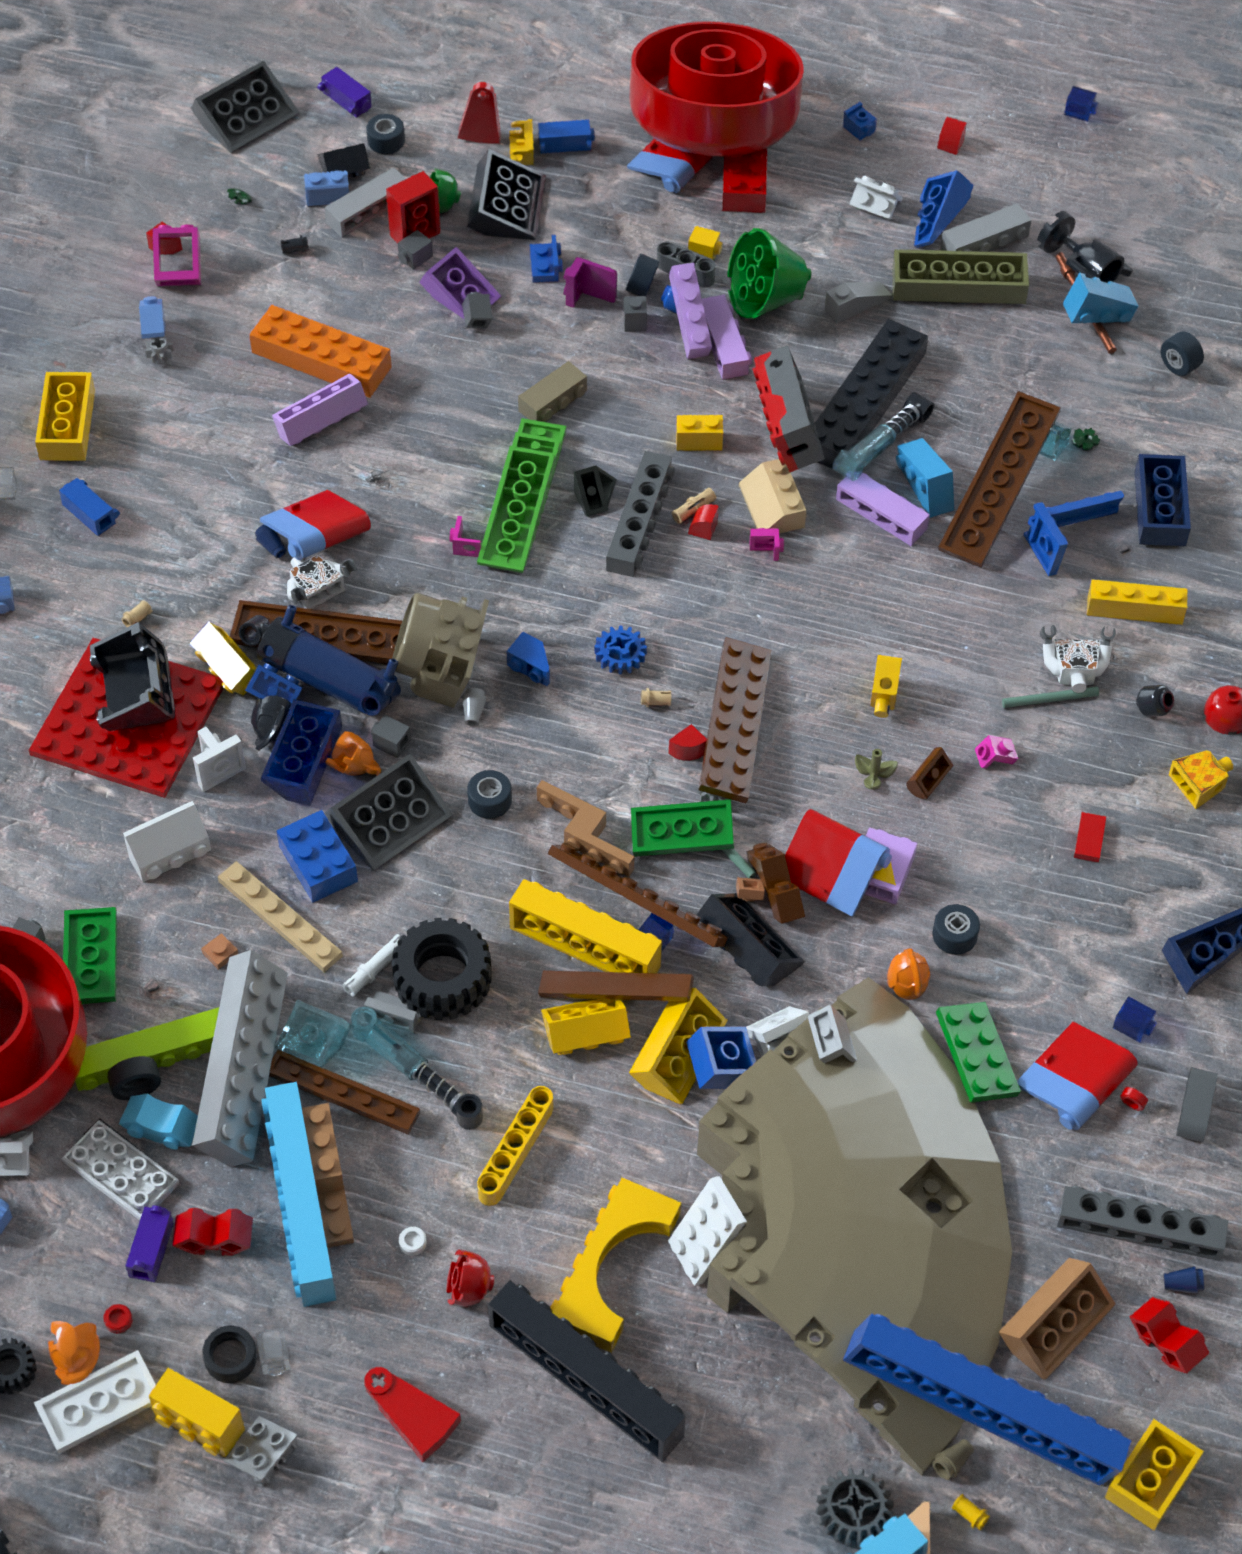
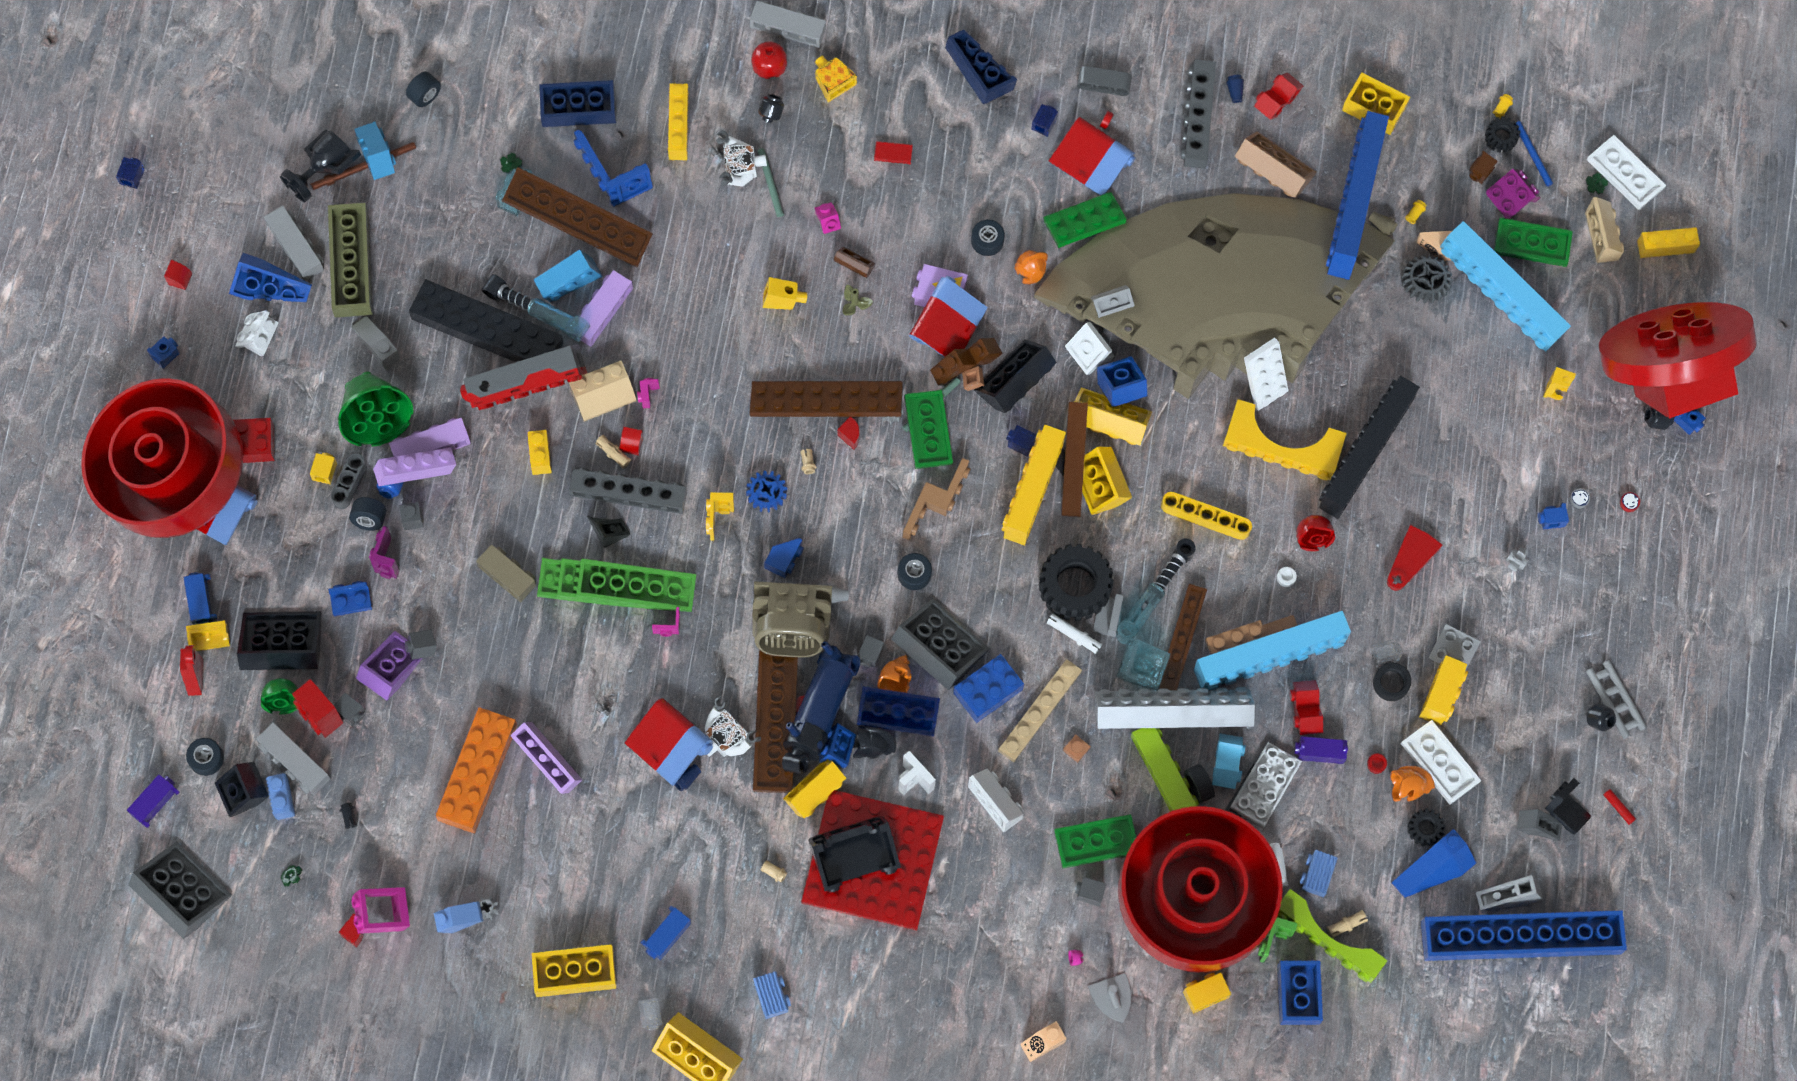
camera: 100 degrees left, 15 degrees up
(593, 586) = (719, 503): none -> yellow bracket
(645, 898) = (994, 453): reddish brown plate -> none

